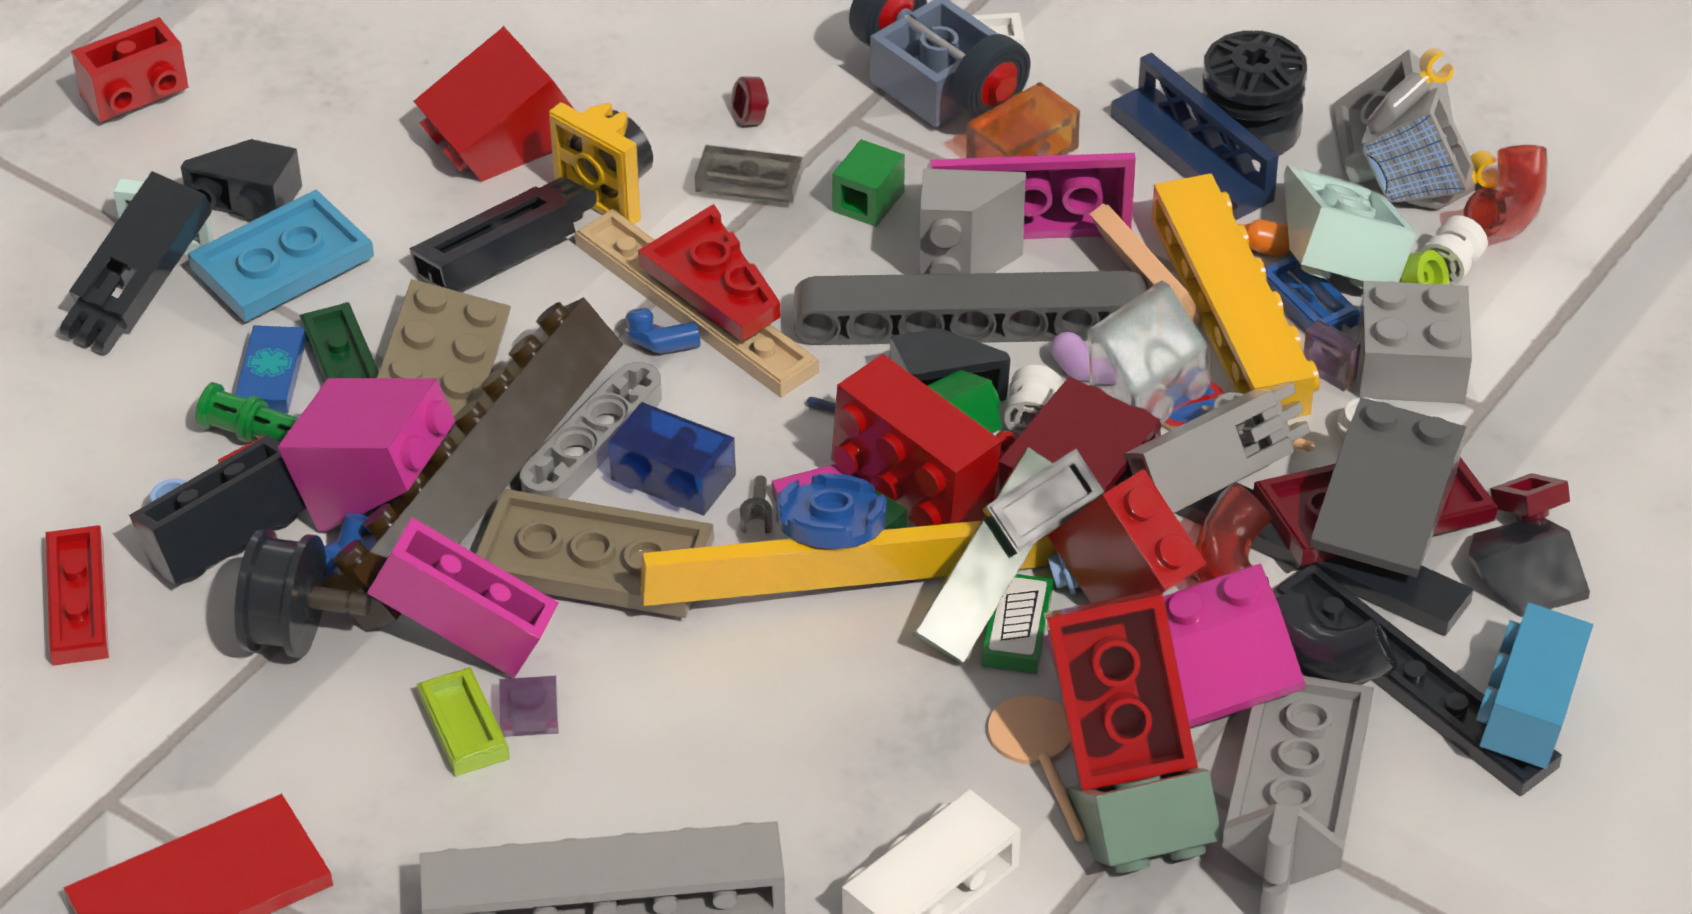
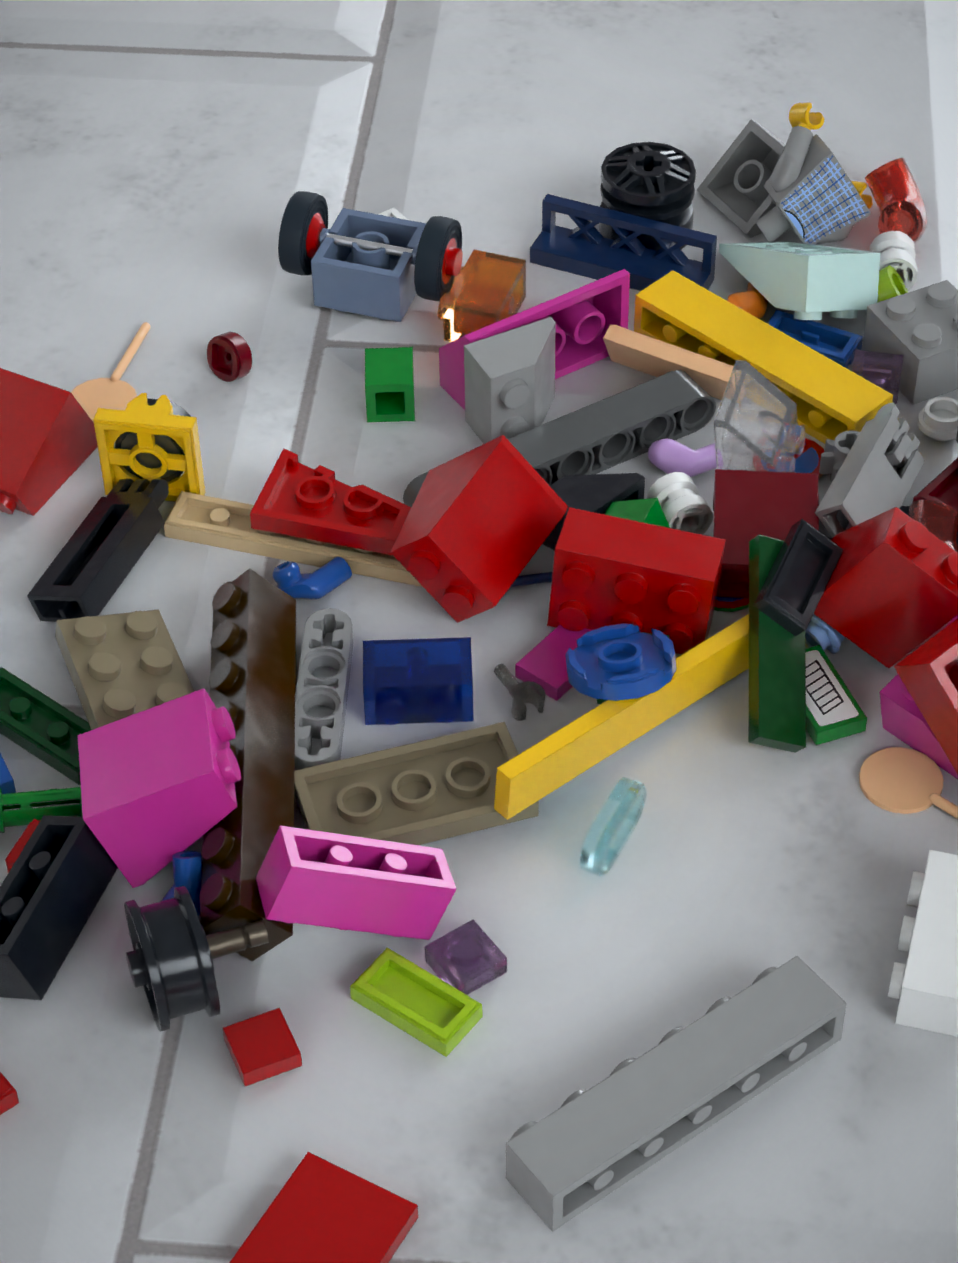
camera: 30 degrees left, 0 degrees up
(315, 699) = (262, 1047): none -> red tile
(630, 94) = (110, 392): none -> light nougat piece
(732, 652) = (613, 826): none -> clear light blue tile
(748, 174) = (278, 416): clear smoke plate -> none
(807, 341) = (477, 527): none -> red slope

